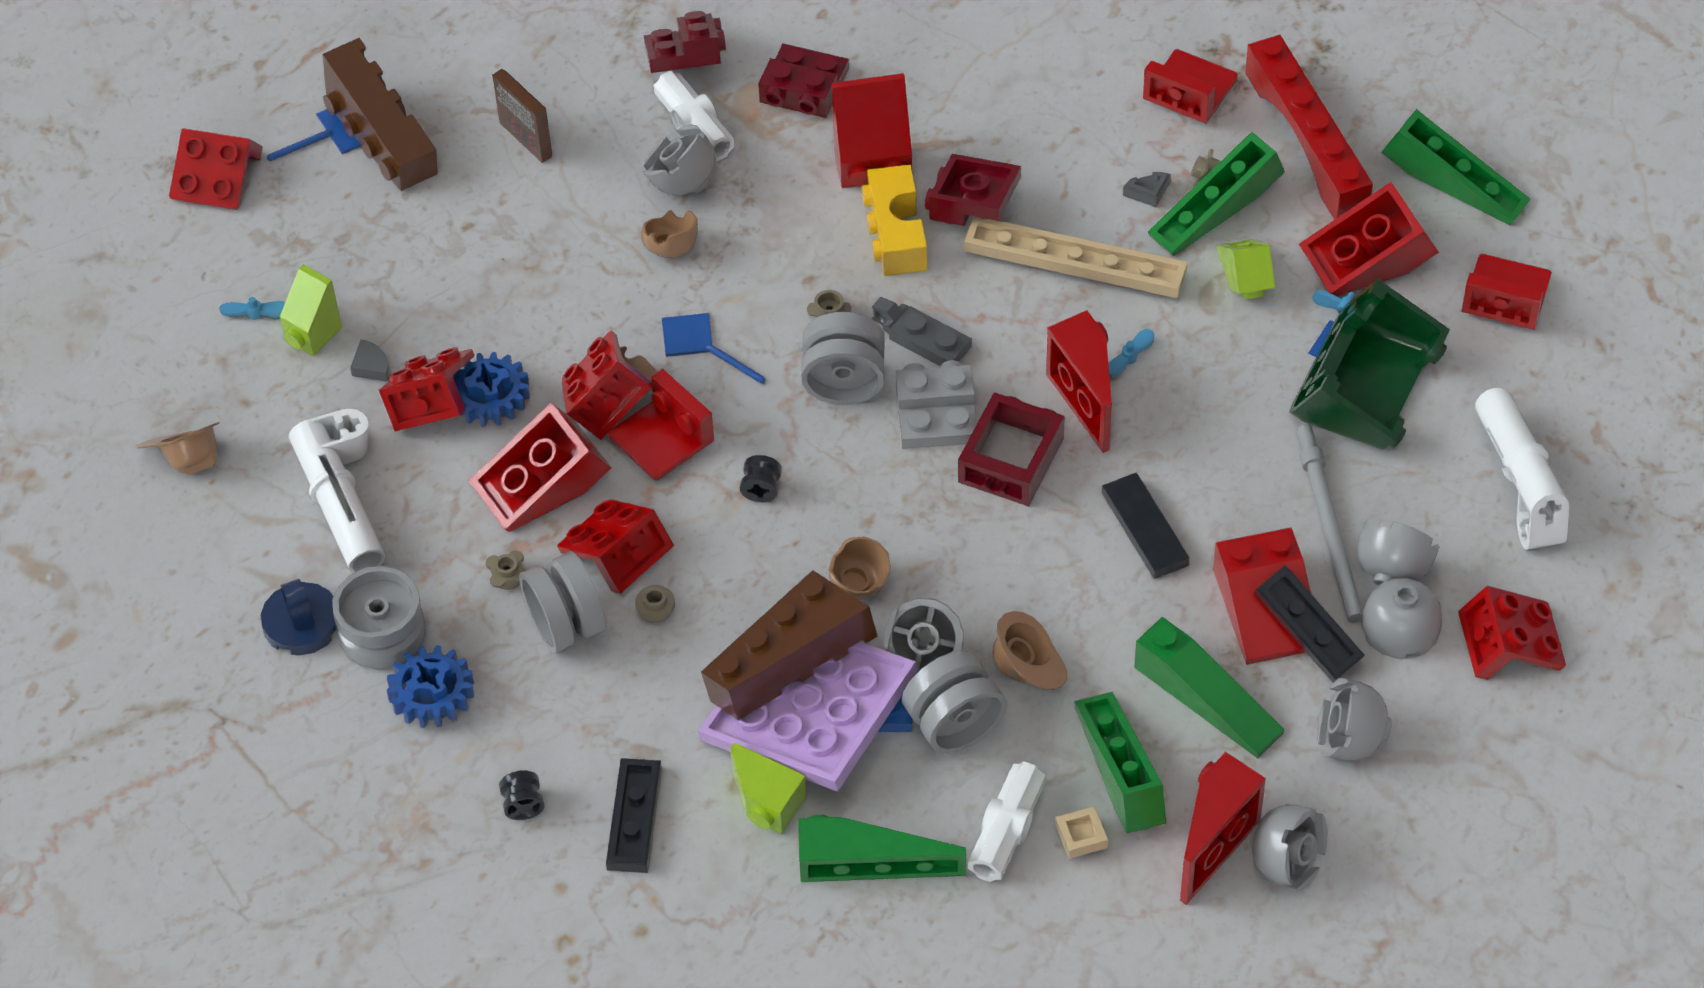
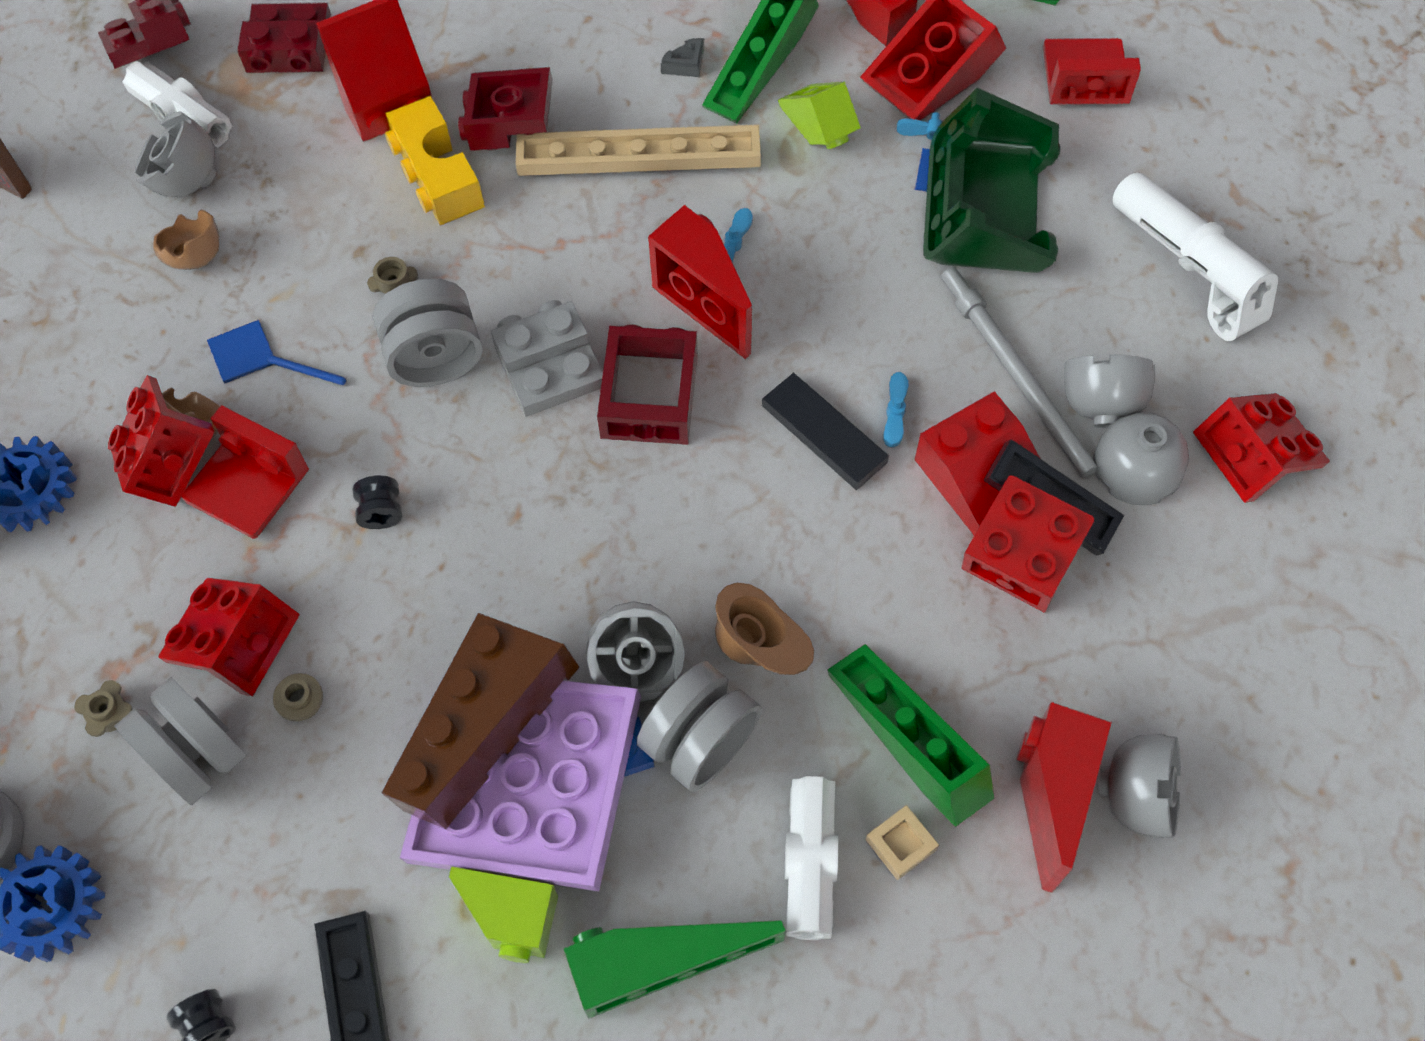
camera: 20 degrees left, 10 degrees up
(539, 469) = (110, 568): red slope -> none
(860, 567) = (527, 582): medium nougat hair -> none
(920, 332) = (502, 278): dark grey hinge -> none
(1201, 684) = (968, 608): green slope -> none
(1203, 166) = (736, 22): dark tan plate -> none
(1212, 525) = (896, 409): none -> dark azure piece
(1267, 648) = (1026, 543): none -> red bracket
(1353, 721) = (1148, 603): light grey cylinder -> none

